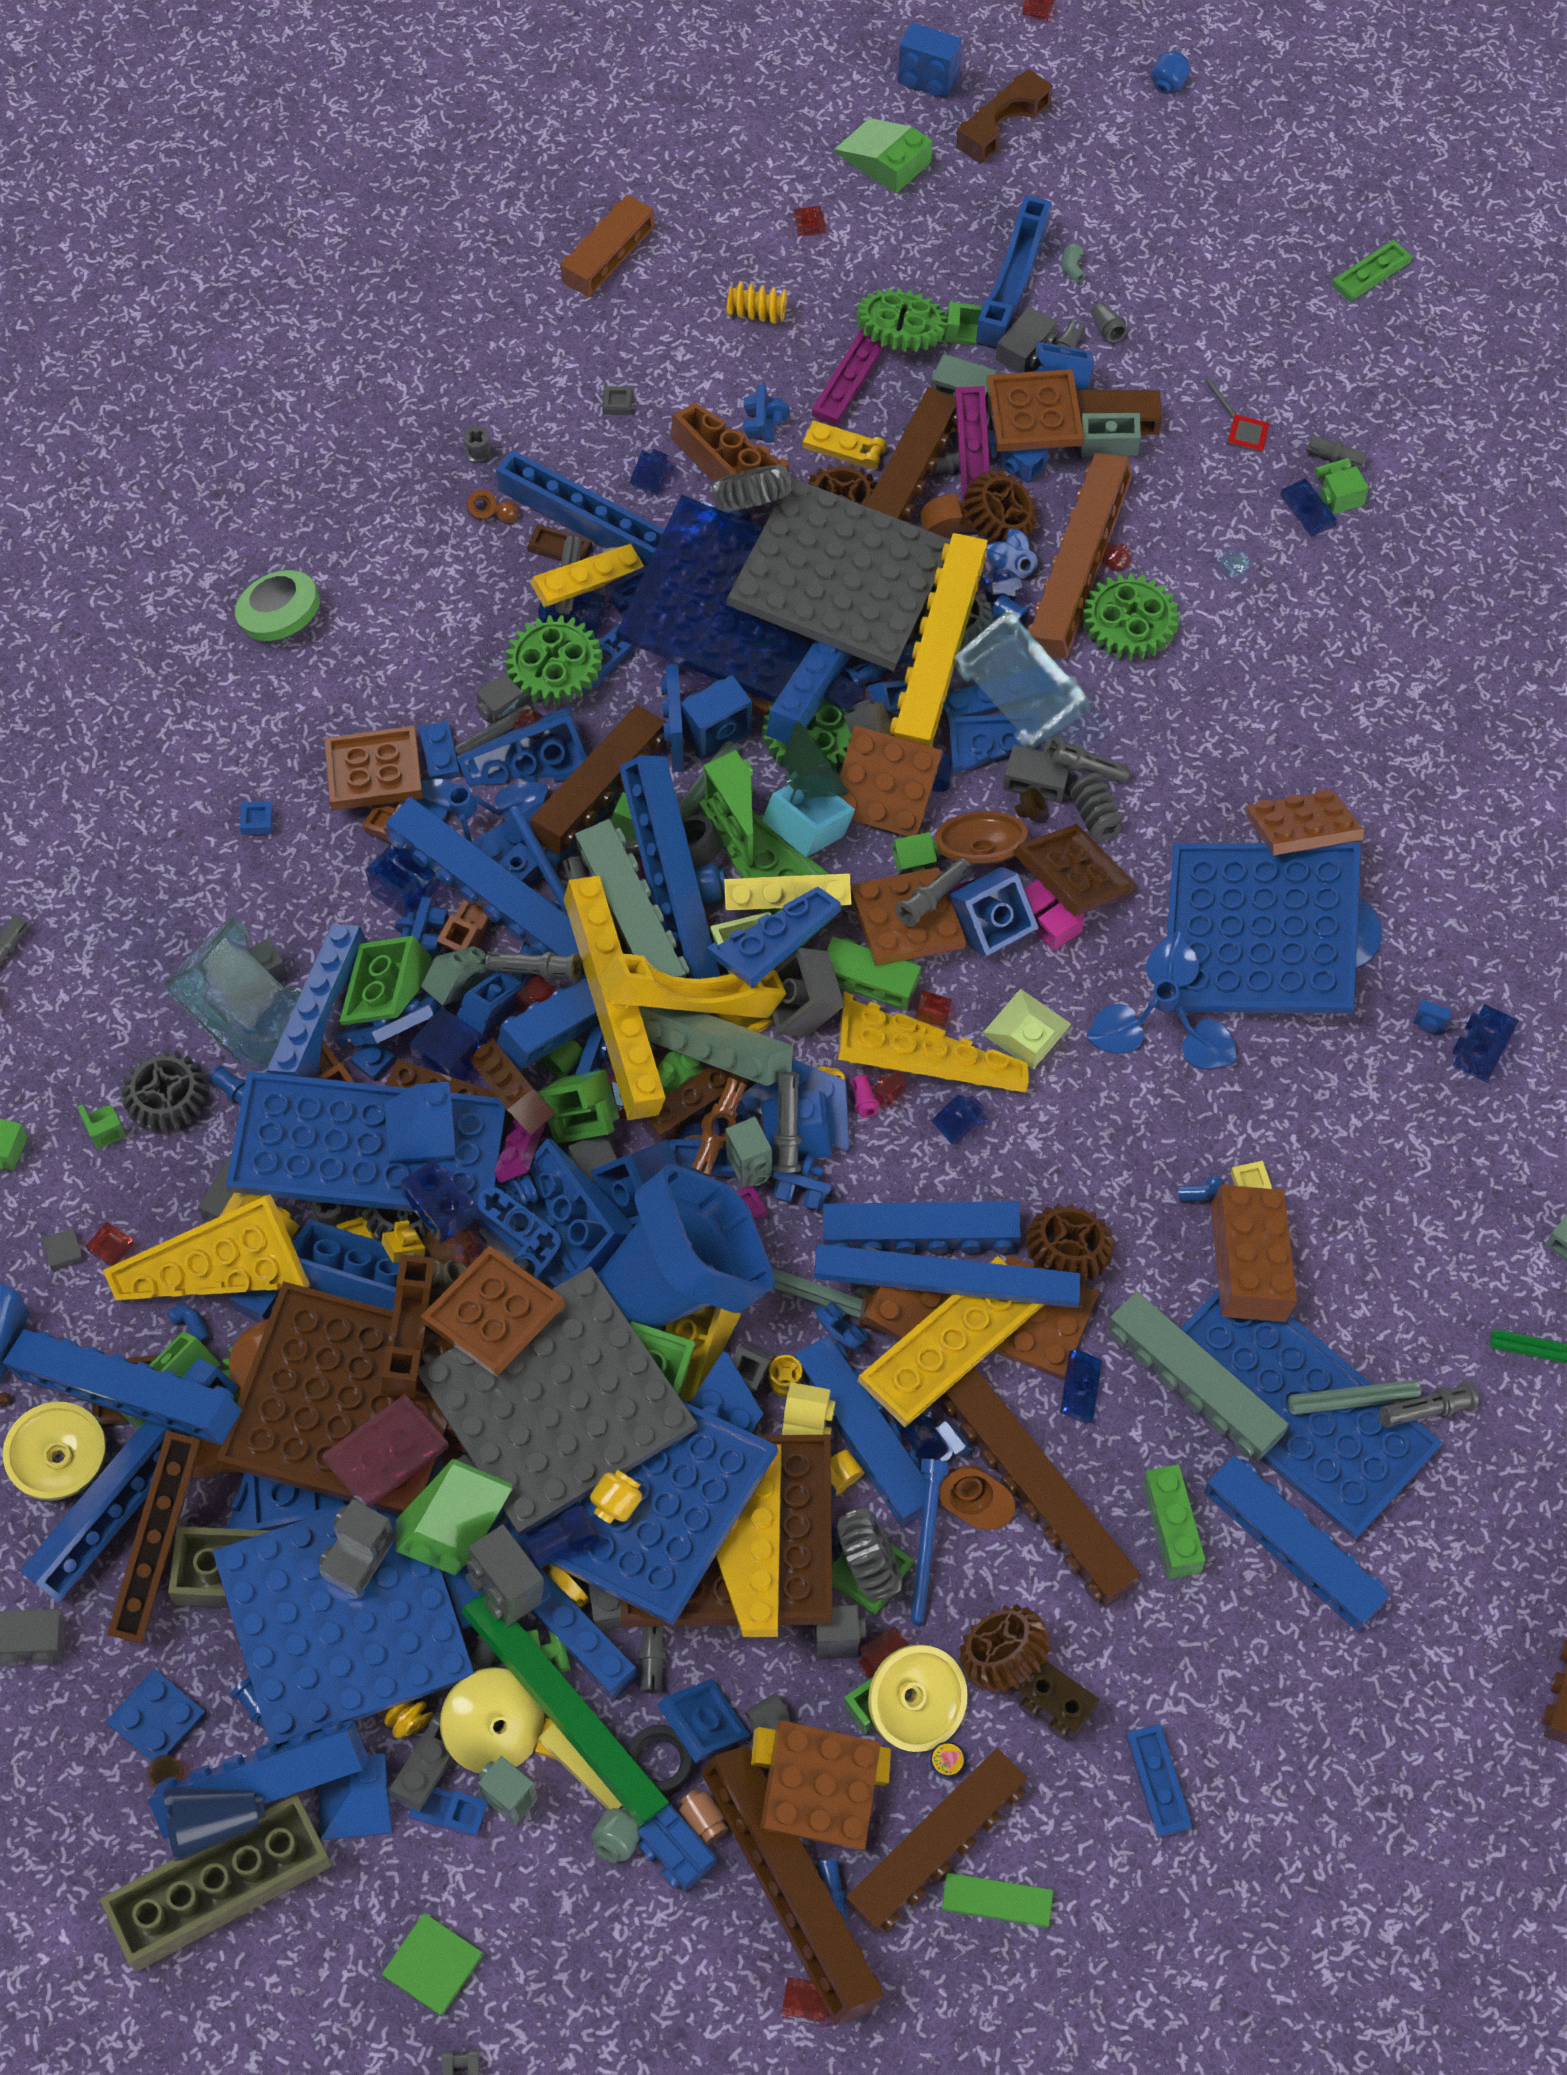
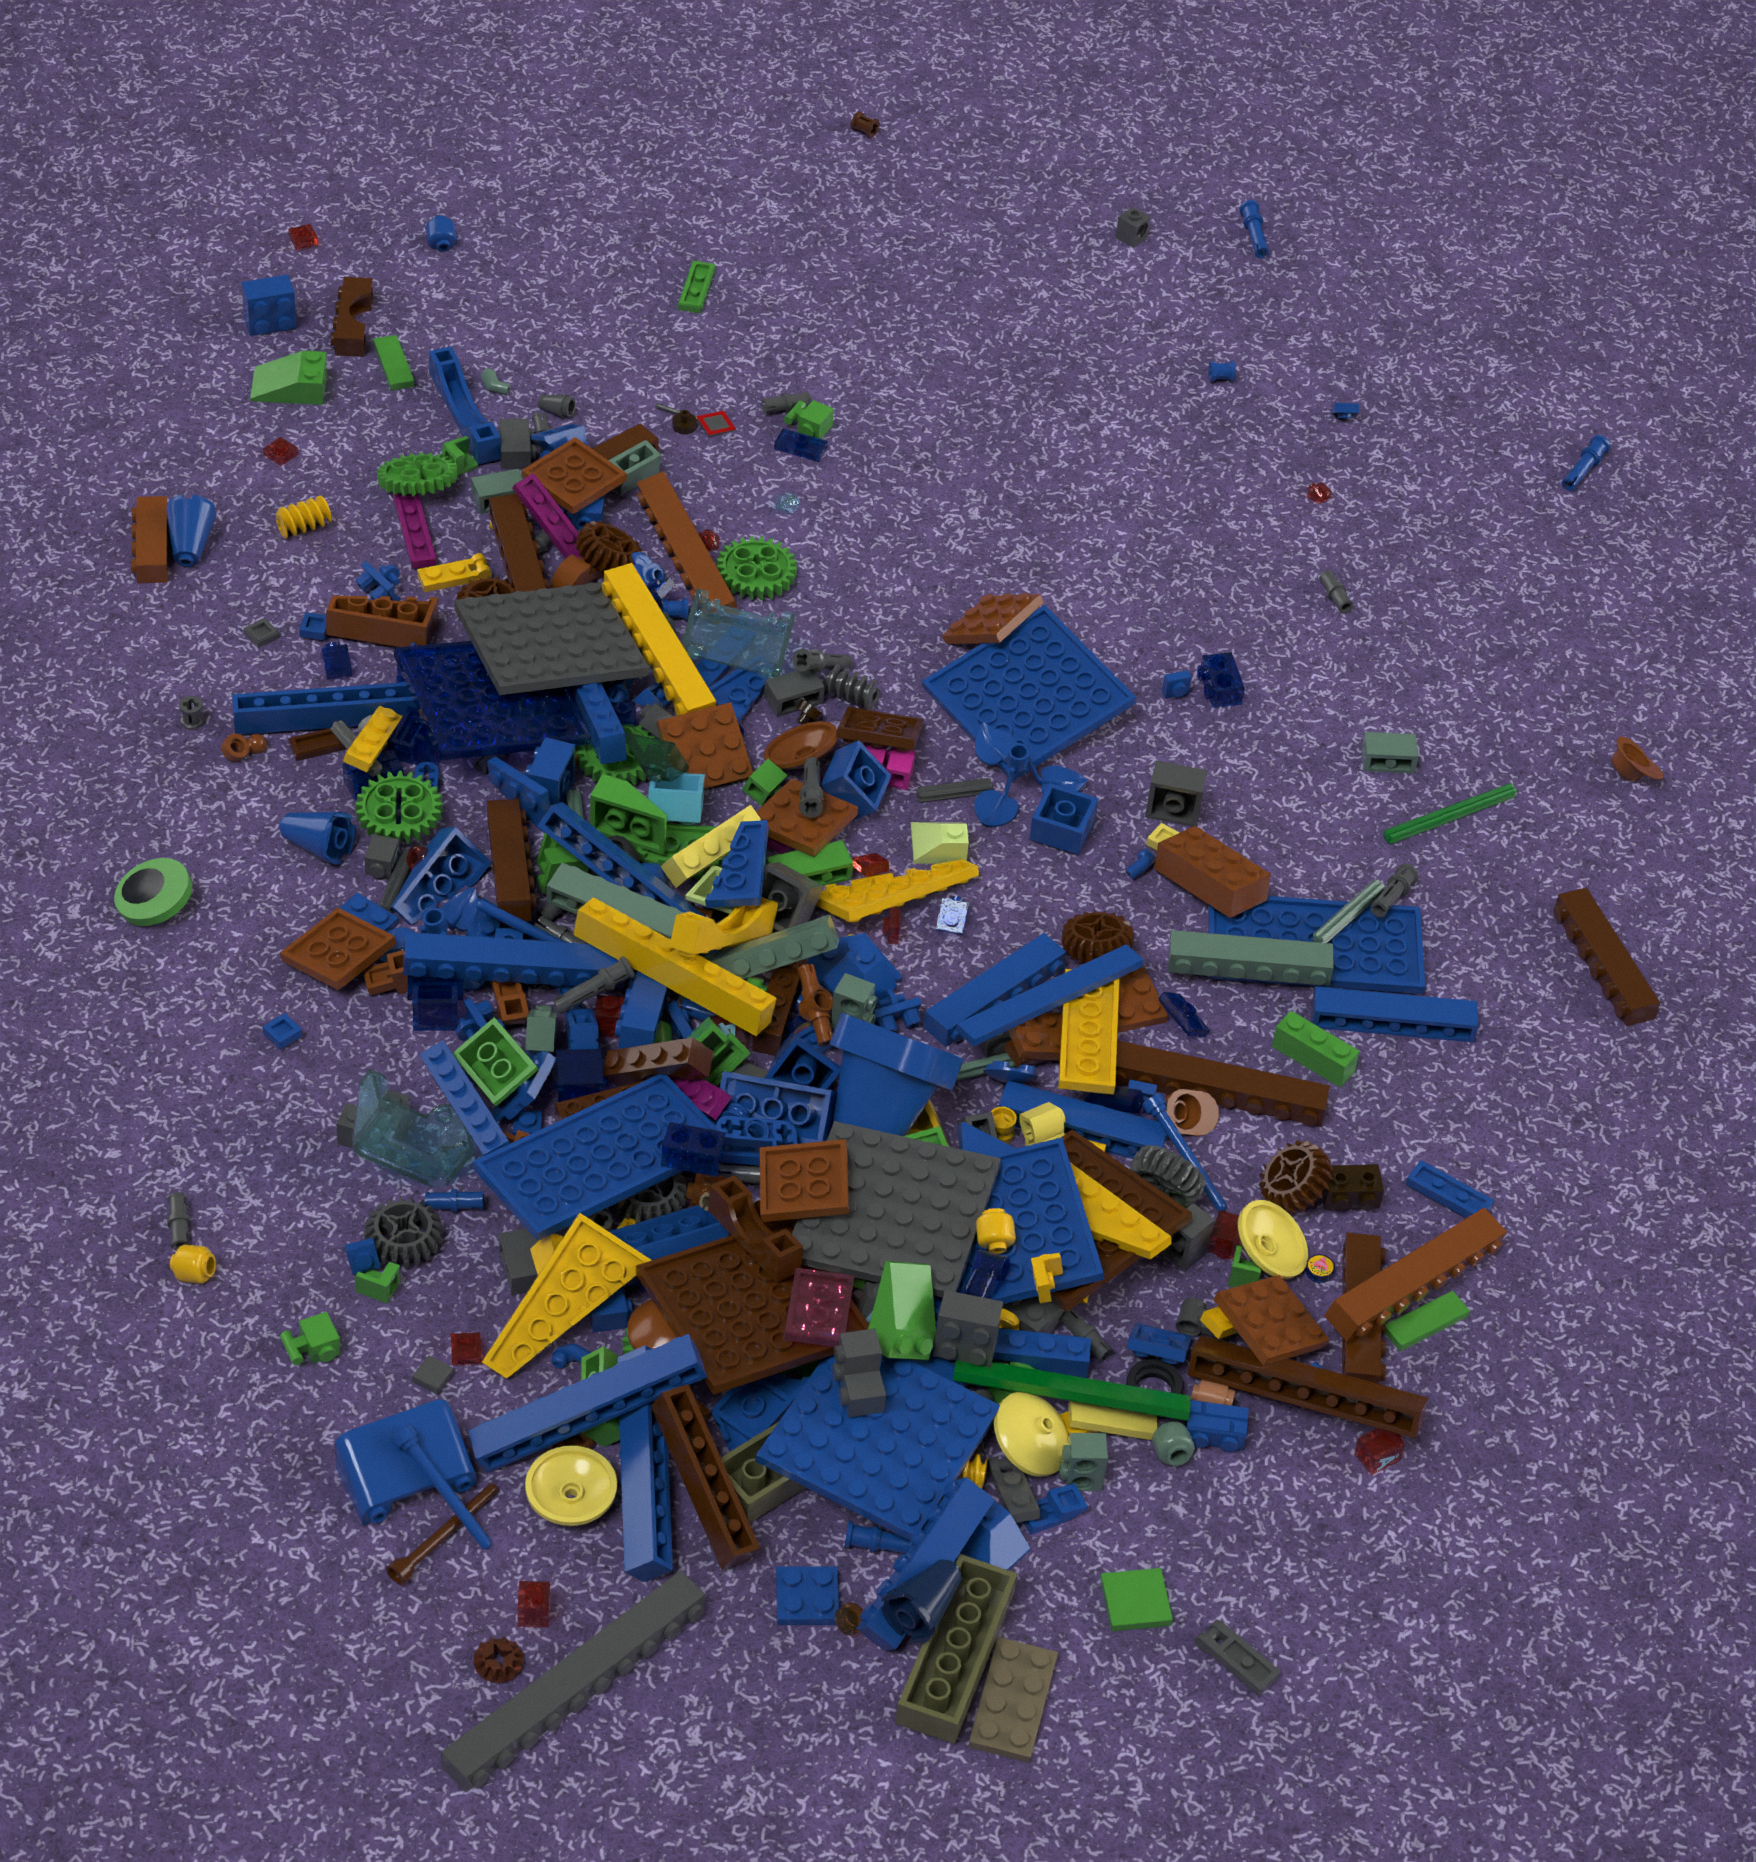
camera: 45 degrees left, 15 degrees down
(107, 1089) = (362, 1256): none -> blue plate
(227, 1972) = (1013, 1699): none -> dark tan plate
(402, 1241) = (681, 1204): yellow tile -> none
(420, 1124) = (629, 1113): blue slope -> none
(466, 643) = (320, 833): none -> blue cone
(606, 1578) = (1043, 1270): none -> yellow bracket
(644, 255) = (189, 527): none -> blue cone
(661, 422) = (313, 626): none -> blue plate
(751, 487) = (441, 616): dark grey gear -> none
(786, 1136) = (862, 966): dark grey pin -> none
(865, 1104) = (885, 944): dark pink pin -> none
(999, 186) = (393, 362): none -> bright green tile
(1017, 1849) = (1415, 1275): none -> dark orange brick
(1094, 982) = (953, 790): none -> dark grey axle
(1164, 1089) = (1063, 818): none -> blue brick
(1215, 414) = (684, 422): none -> dark brown tile
(1302, 1140) = (1176, 793): none -> dark grey brick

